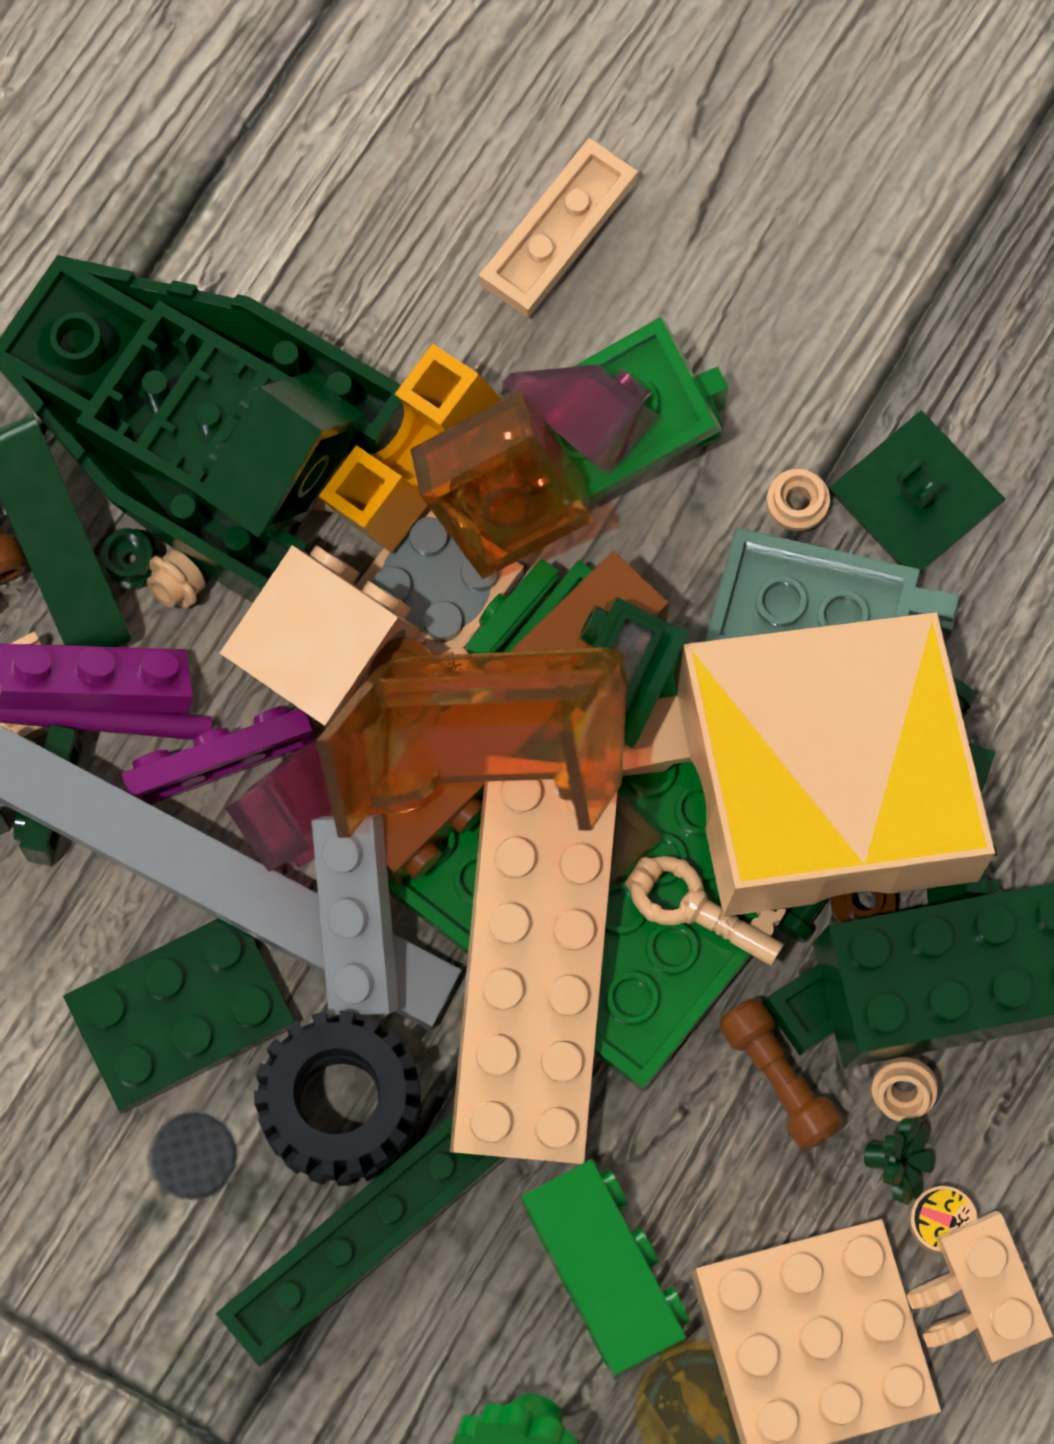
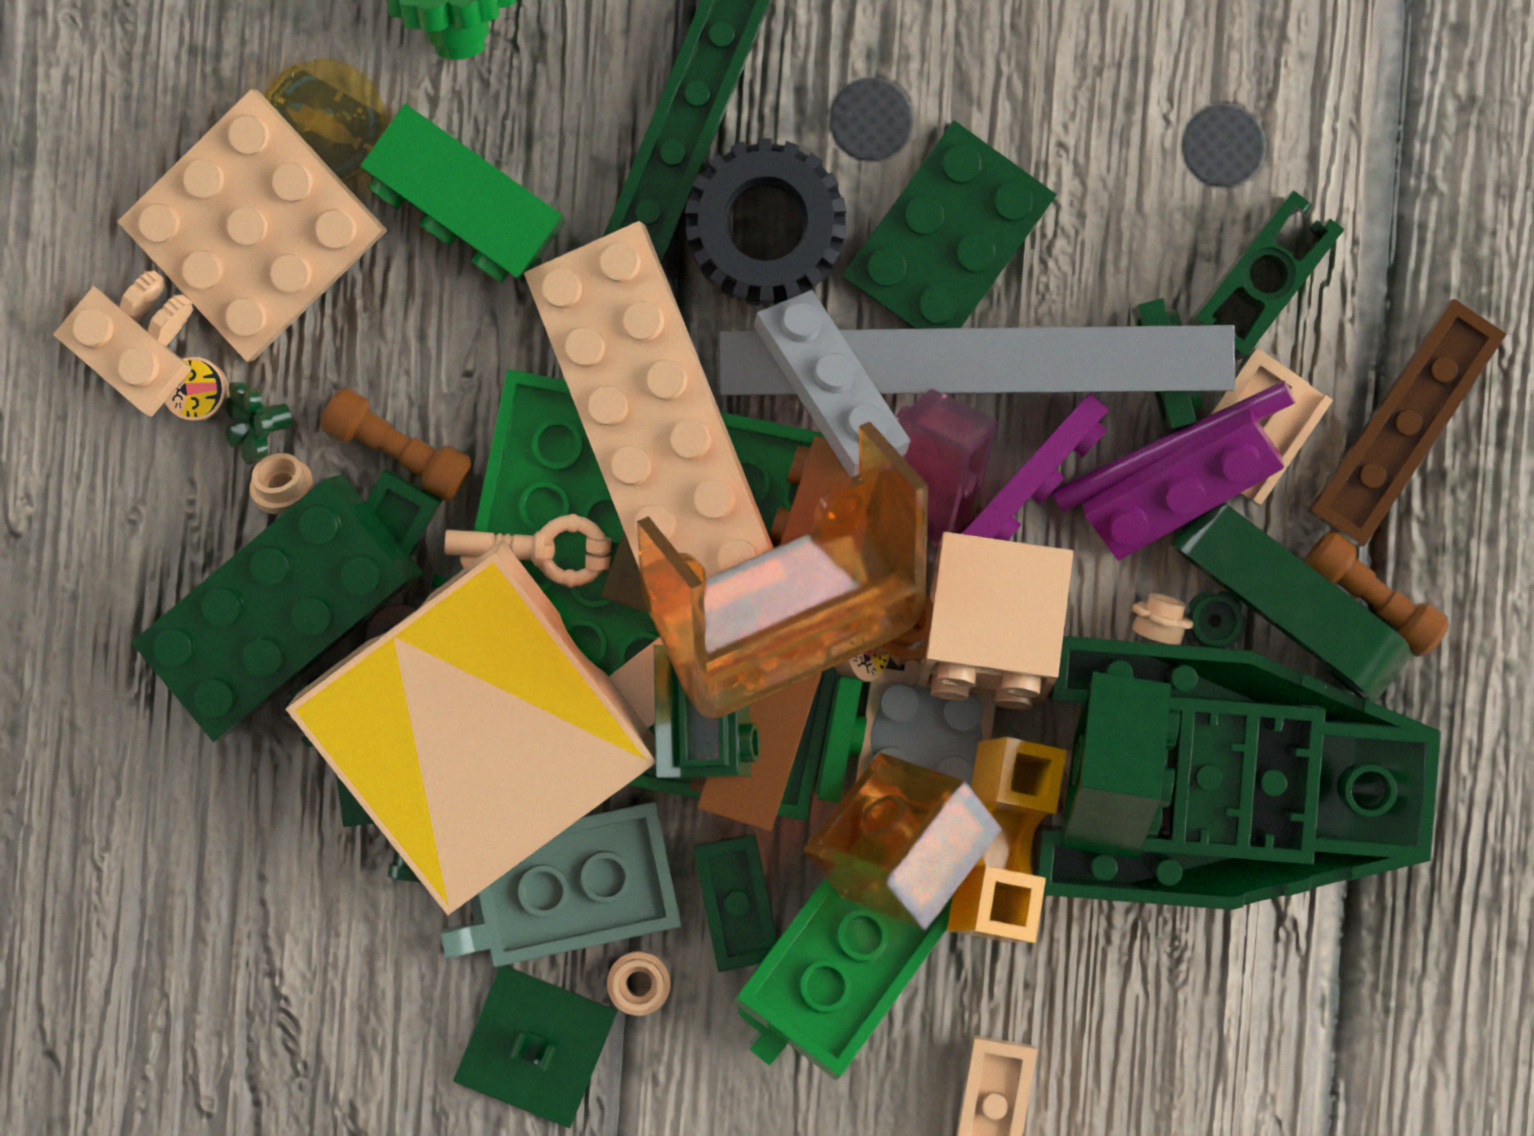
camera: 155 degrees right, 15 degrees up
(589, 408) = (861, 951): clear pink slope -> none
(676, 524) = (735, 901): none -> dark green plate

